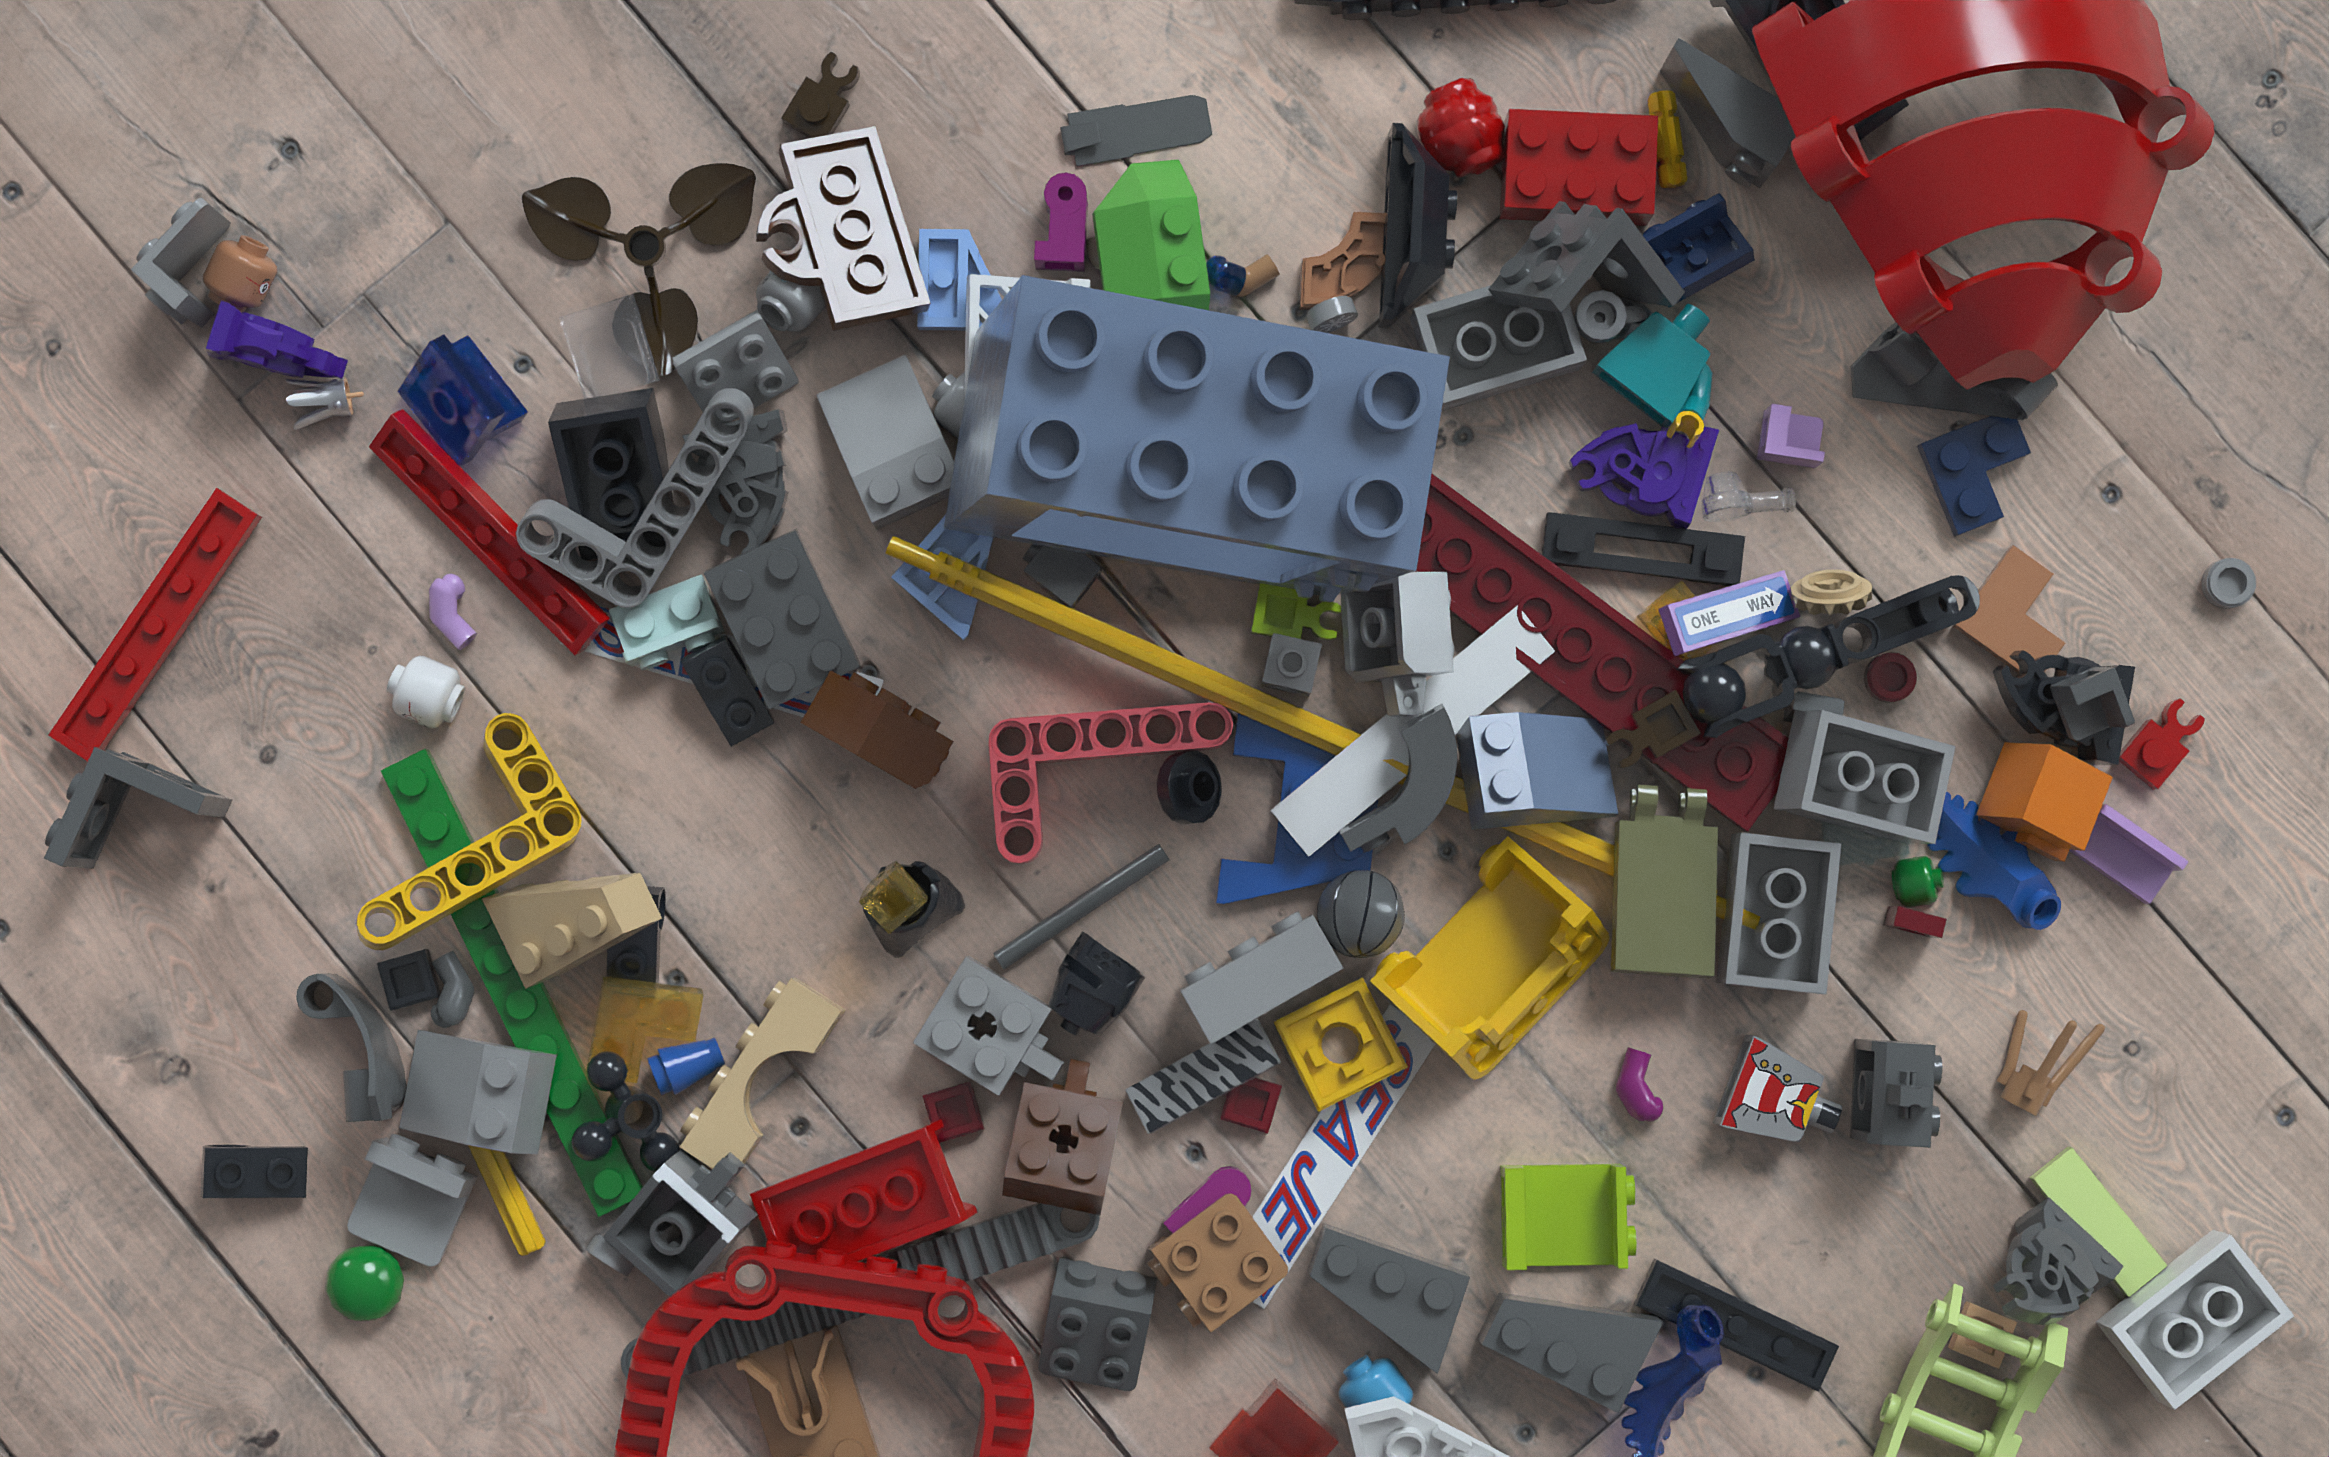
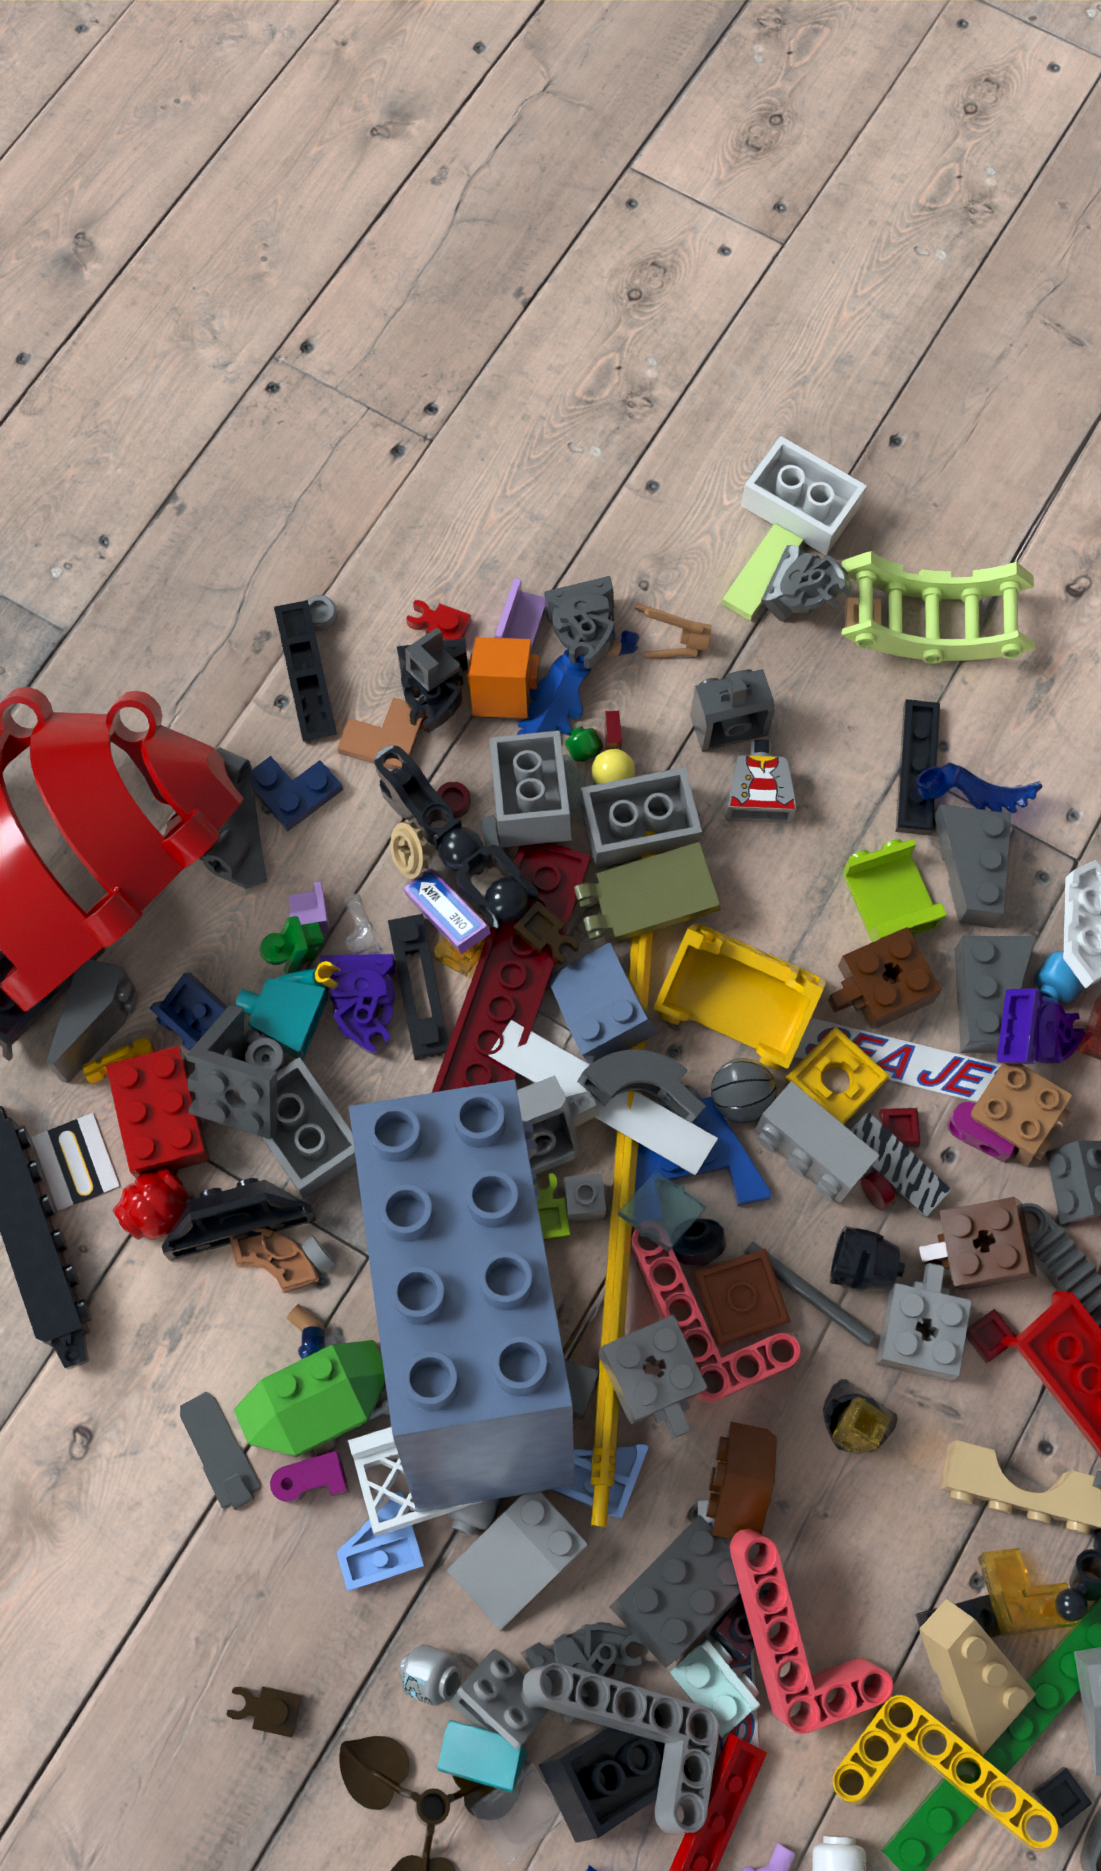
camera: 115 degrees left, 15 degrees down
(456, 993) = (1057, 1753): dark grey arm -> none
(674, 711) = (787, 1646): none -> coral beam
(682, 323) = (481, 1756): none -> slope
(684, 1064) = (1038, 1549): blue cone -> none
(844, 230) = (366, 1649): plate -> none
(1008, 673) = (644, 1394): none -> light grey hinge
(1104, 819) = (742, 1296): none -> copper plate
(1178, 1040) = (878, 1190): none -> dark red tile
(1240, 753) = (662, 1211): none -> clear light blue piece
(1310, 1323) = (1036, 1029): none -> dark purple piece
(1469, 1134) = (880, 1000): none -> reddish brown hinge
(1553, 52) = (75, 1161): none -> sticker
(1633, 1089) = (791, 876): magenta arm -> none
(1745, 396) = (293, 944): none -> green hips
(1861, 903) = (612, 766): none -> light yellow piece
(2044, 973) = (626, 645): none -> clear blue arm
(2103, 941) = (583, 618): none -> dark grey piece
(2143, 536) = (305, 670): none -> black slope

